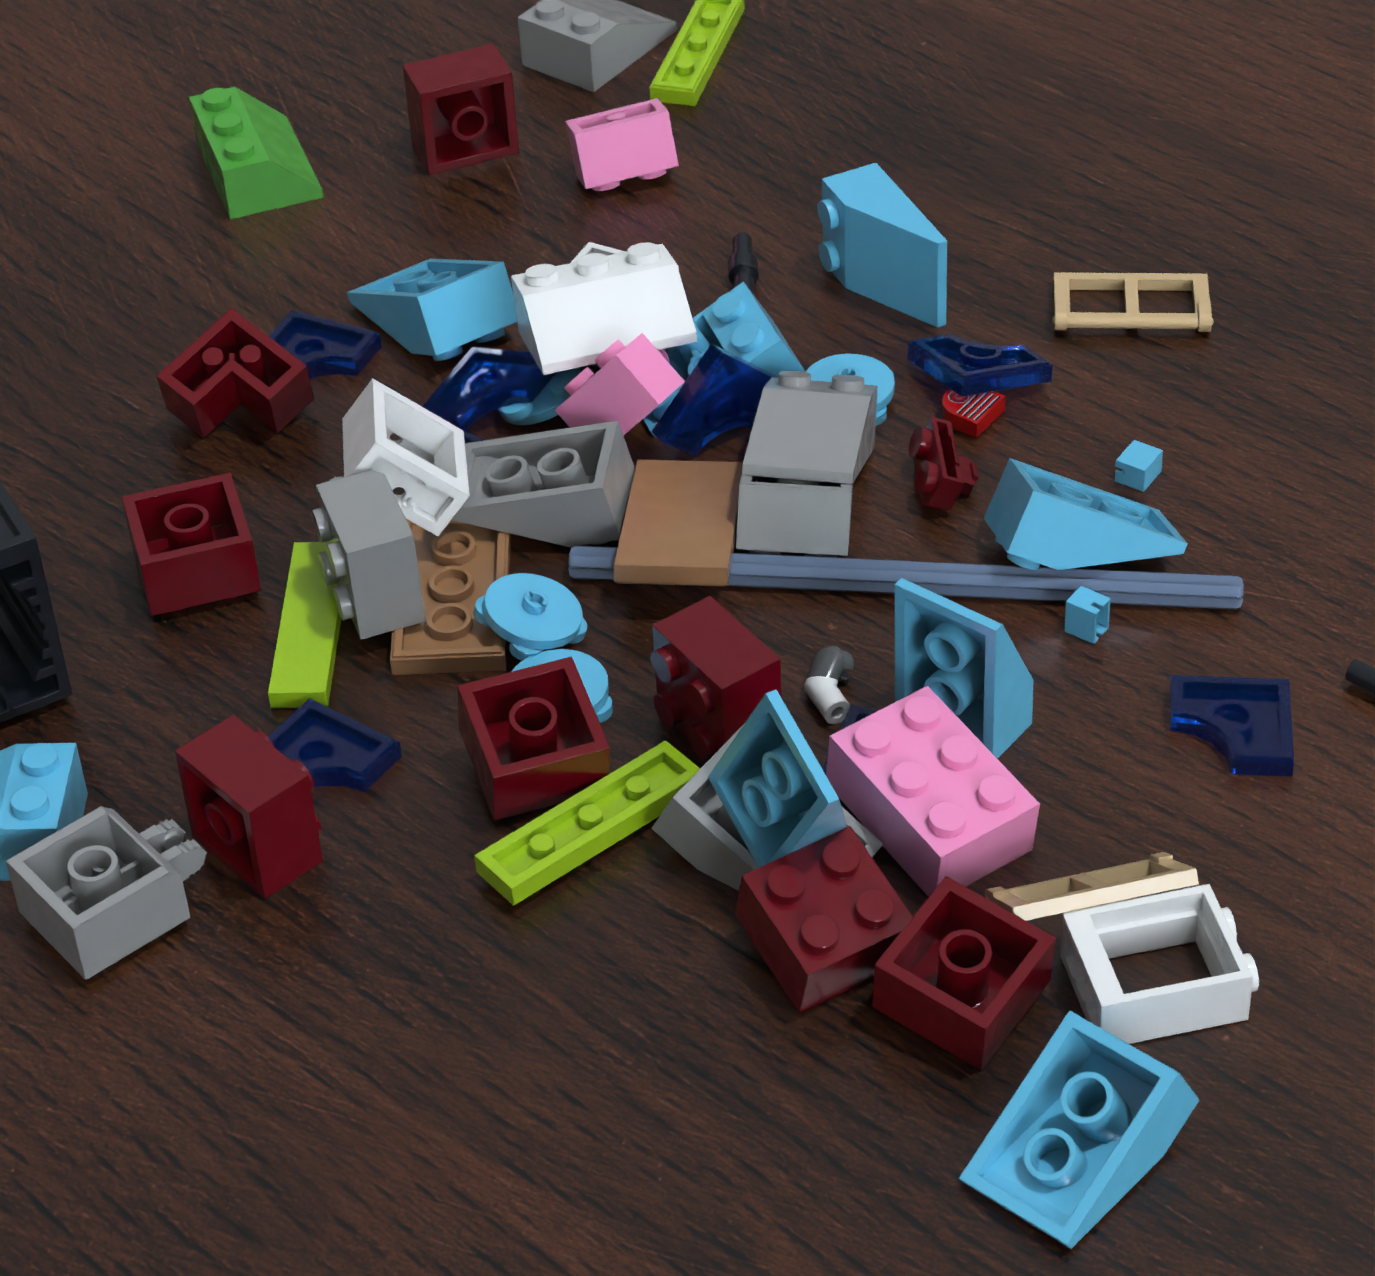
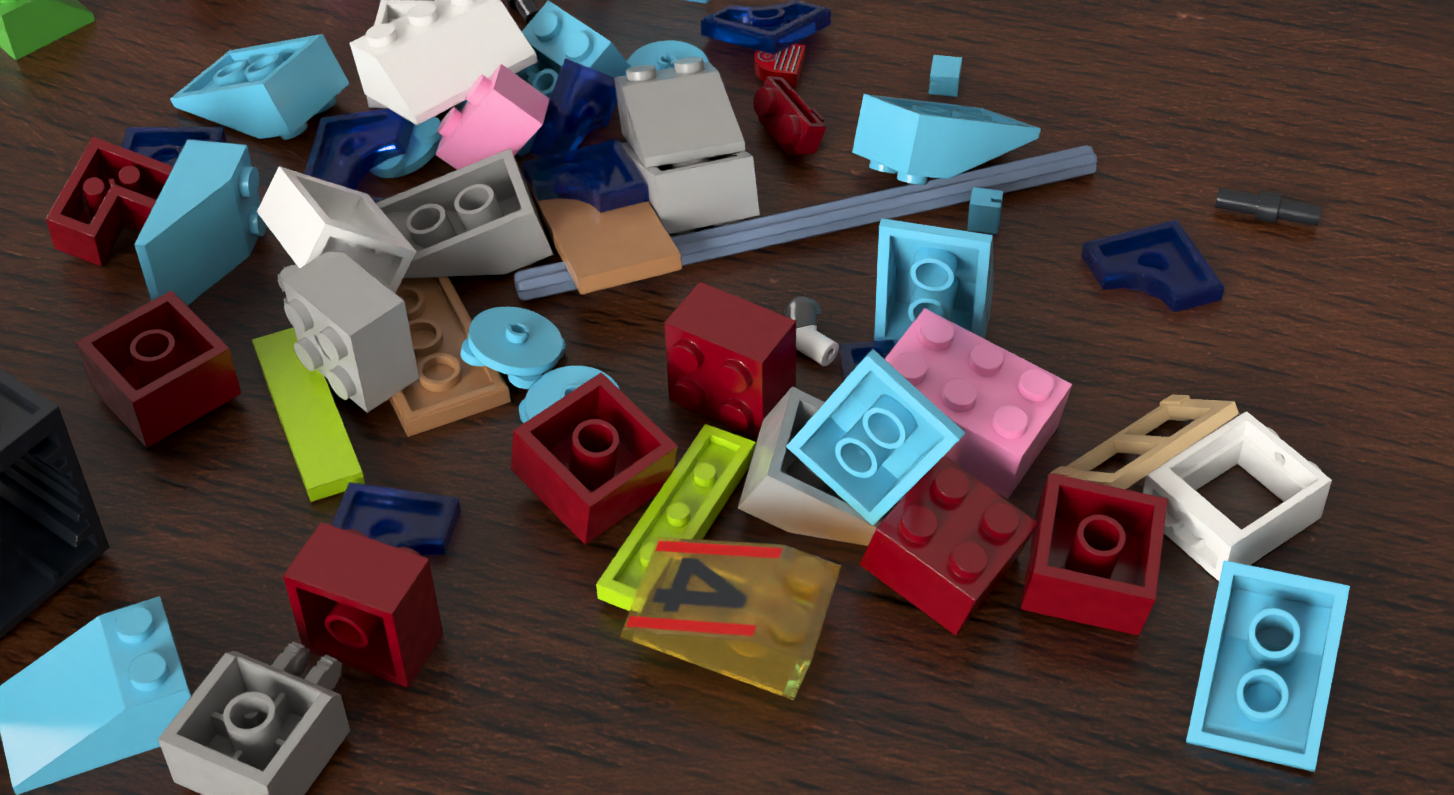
camera: 25 degrees left, 5 degrees up
(290, 418) = (201, 220): none -> medium azure slope
(588, 917) = (734, 608): none -> clear yellow slope
(695, 471) = (591, 174): none -> clear blue tile

